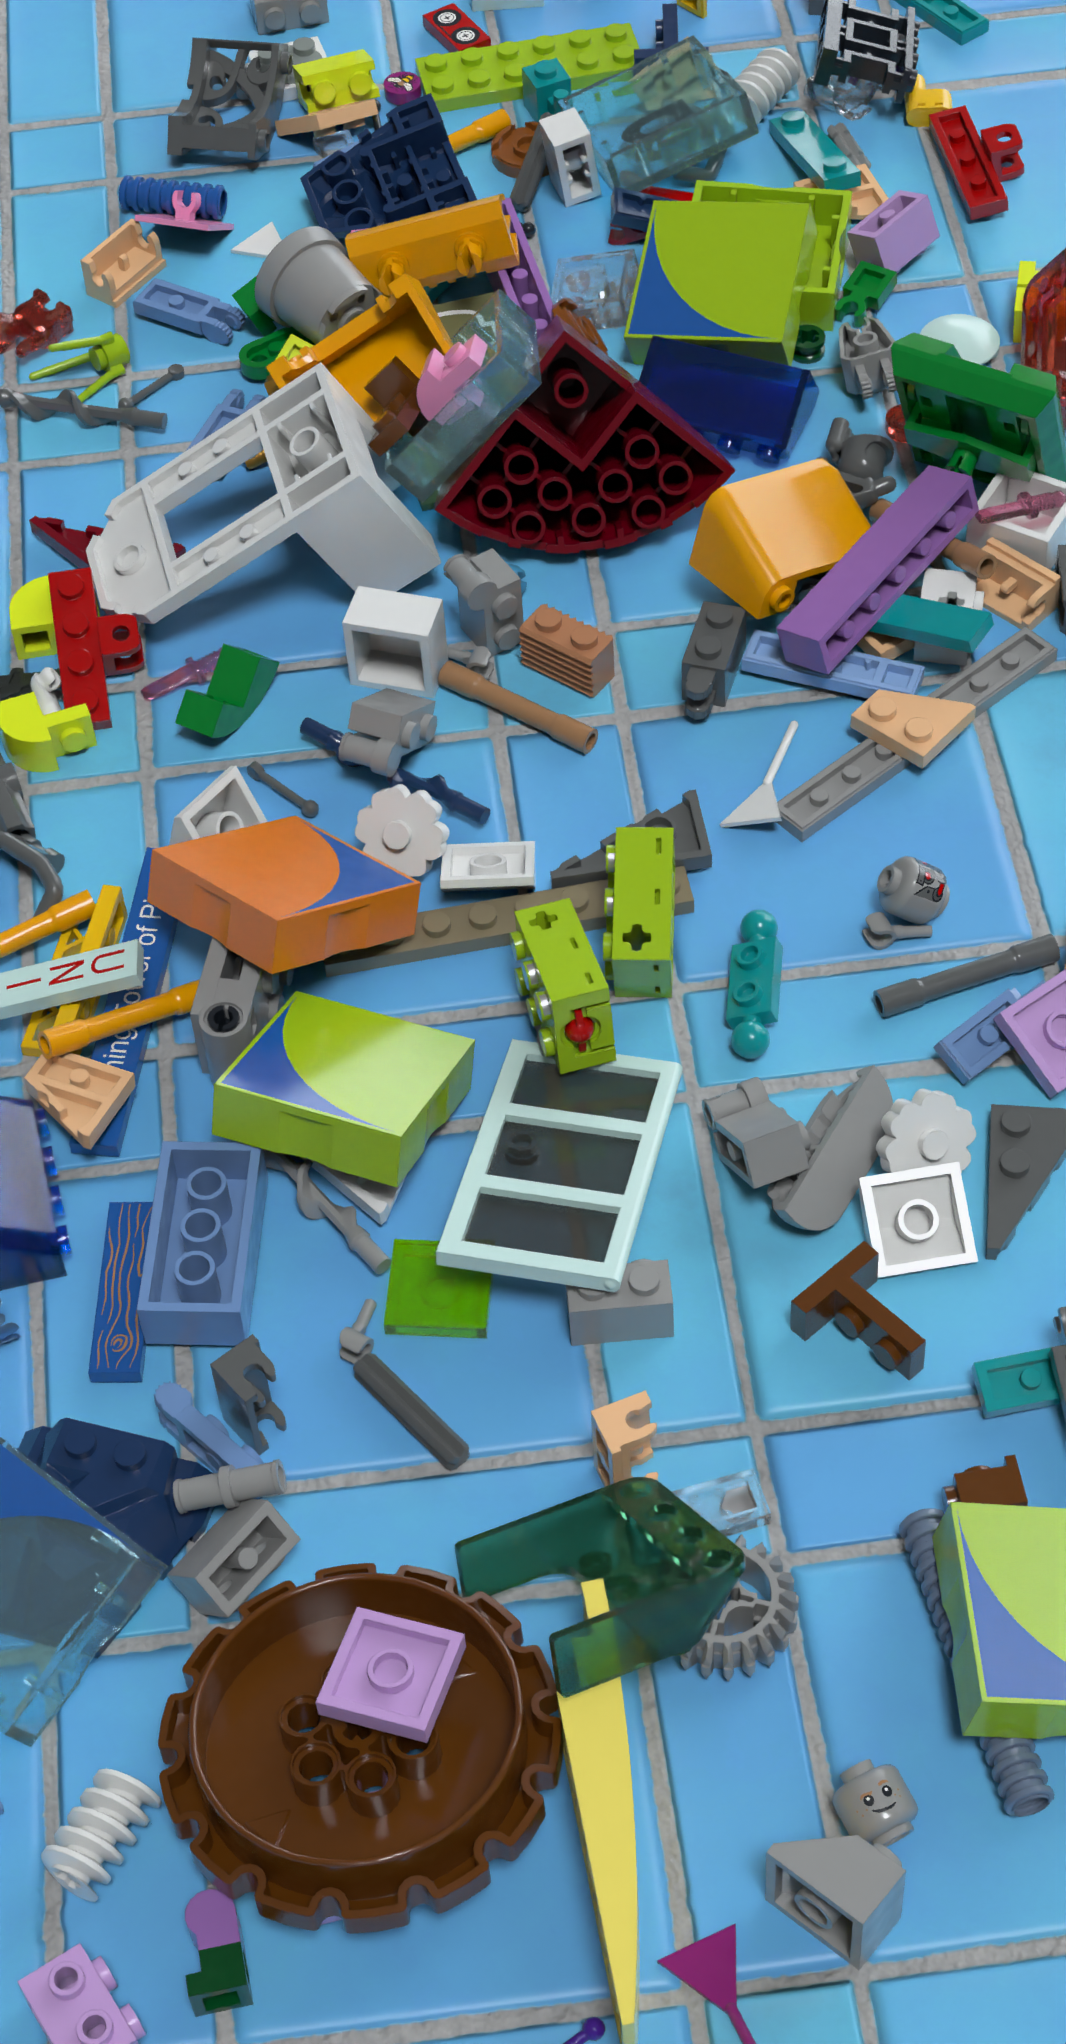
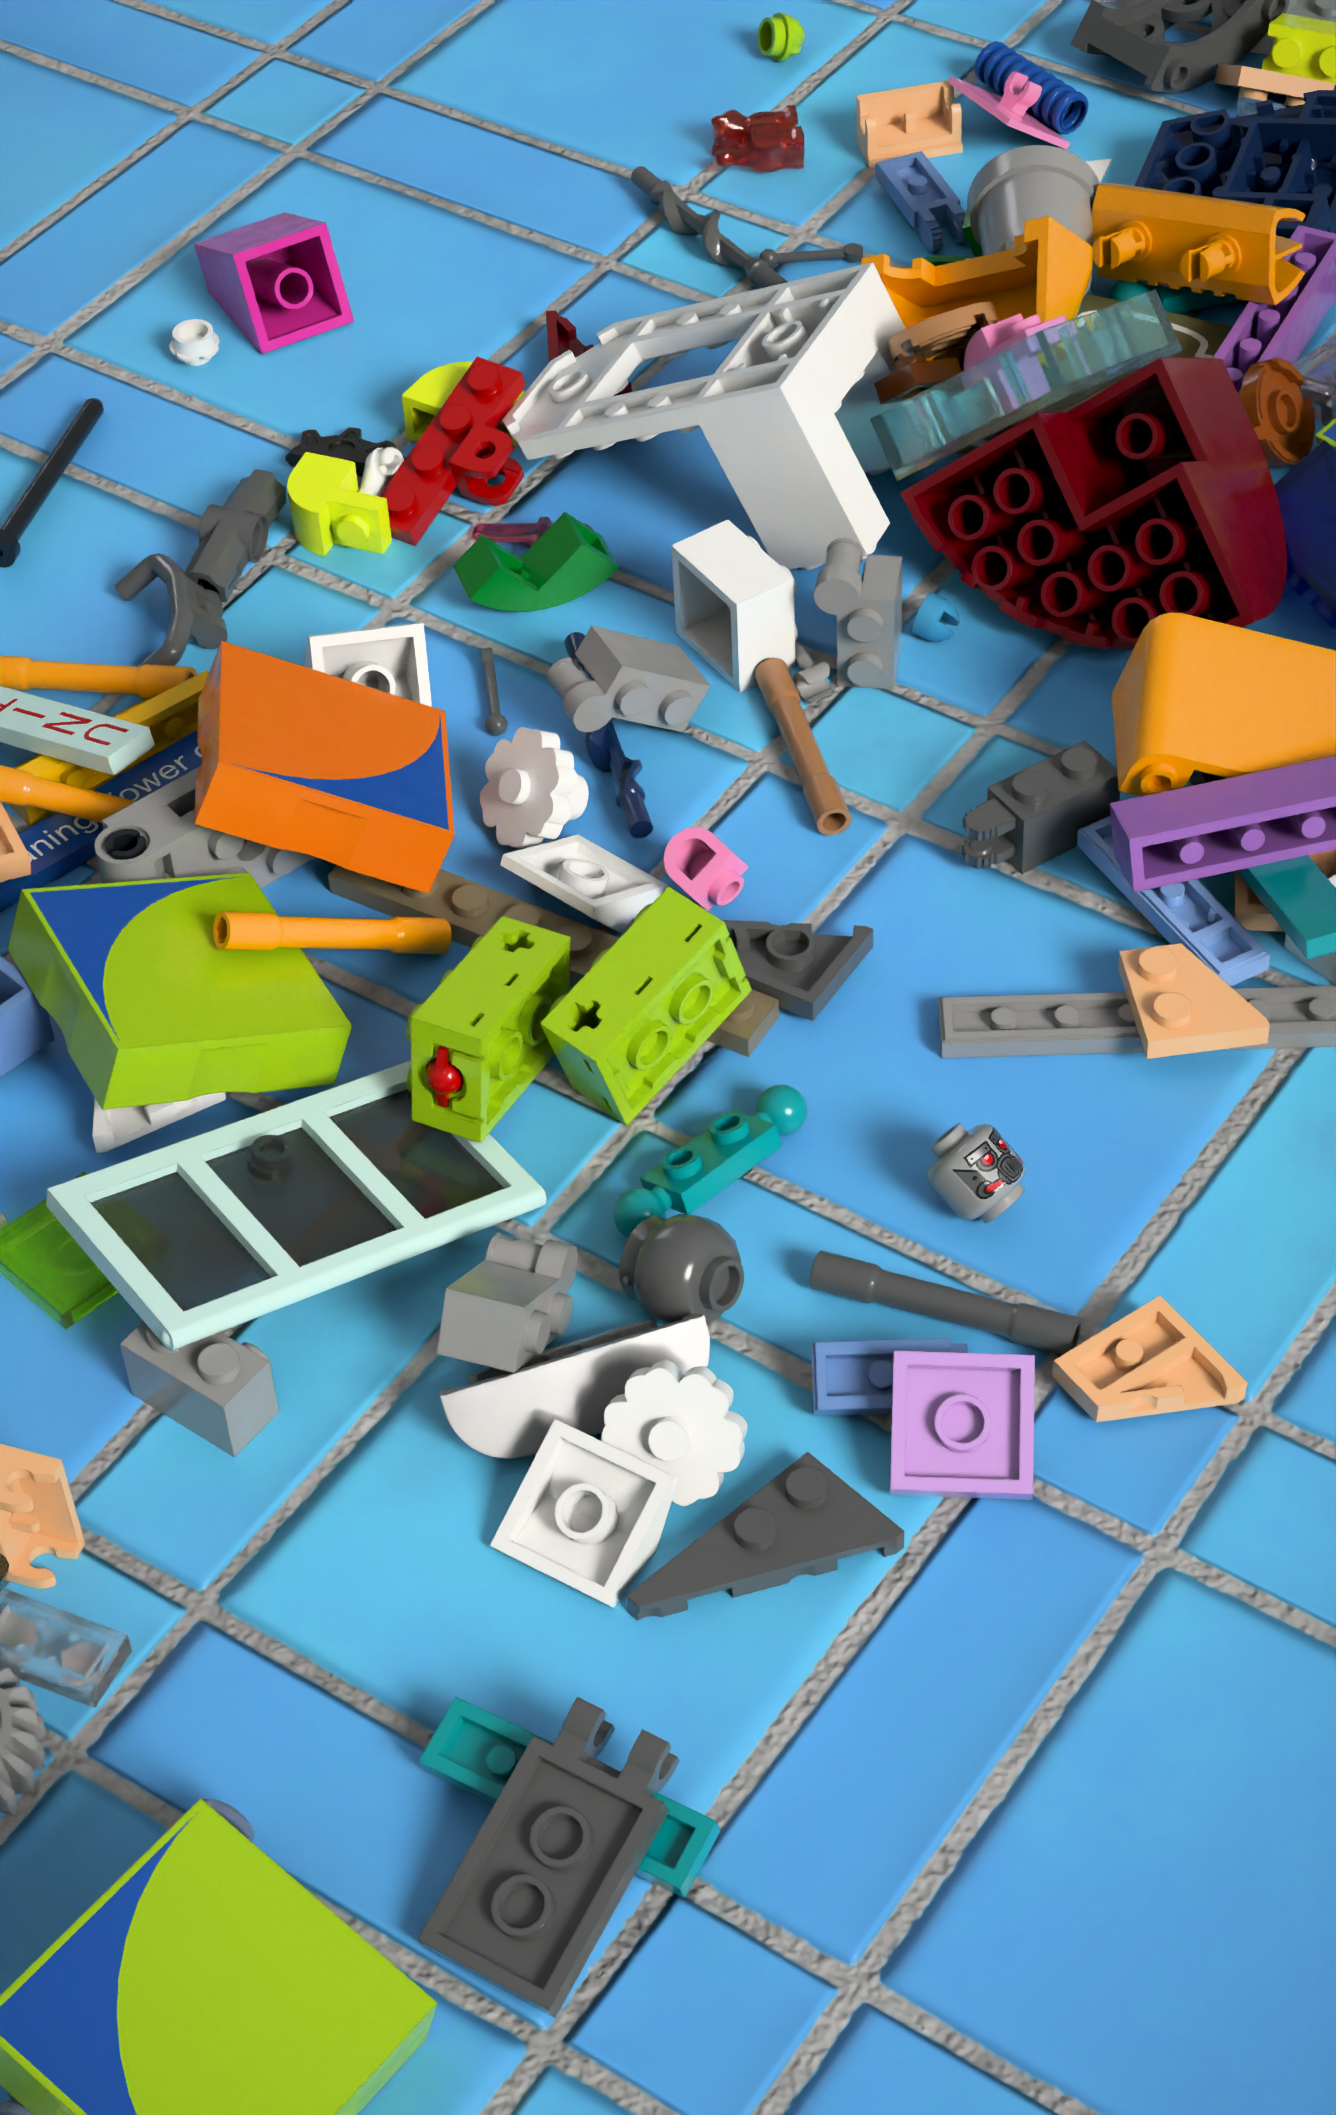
camera: 40 degrees right, 5 degrees down
(107, 354) = (798, 200): lime plant -> none
(317, 1206) = (59, 1091): light grey piece -> none
(373, 1013) = (271, 931): none -> light orange piece
(393, 386) = (942, 331): none -> medium nougat tile
(557, 814) = (704, 867): none -> bright pink plate
(567, 650) = (906, 716): nougat brick -> none
(762, 803) = (927, 992): white piece -> none
(824, 1050) = (681, 1268): none -> dark grey piece
(843, 1296) = (409, 1532): reddish brown bracket -> none
(882, 934) = (908, 1202): light grey hand -> none
(987, 1485) = (318, 1846): reddish brown brick -> none

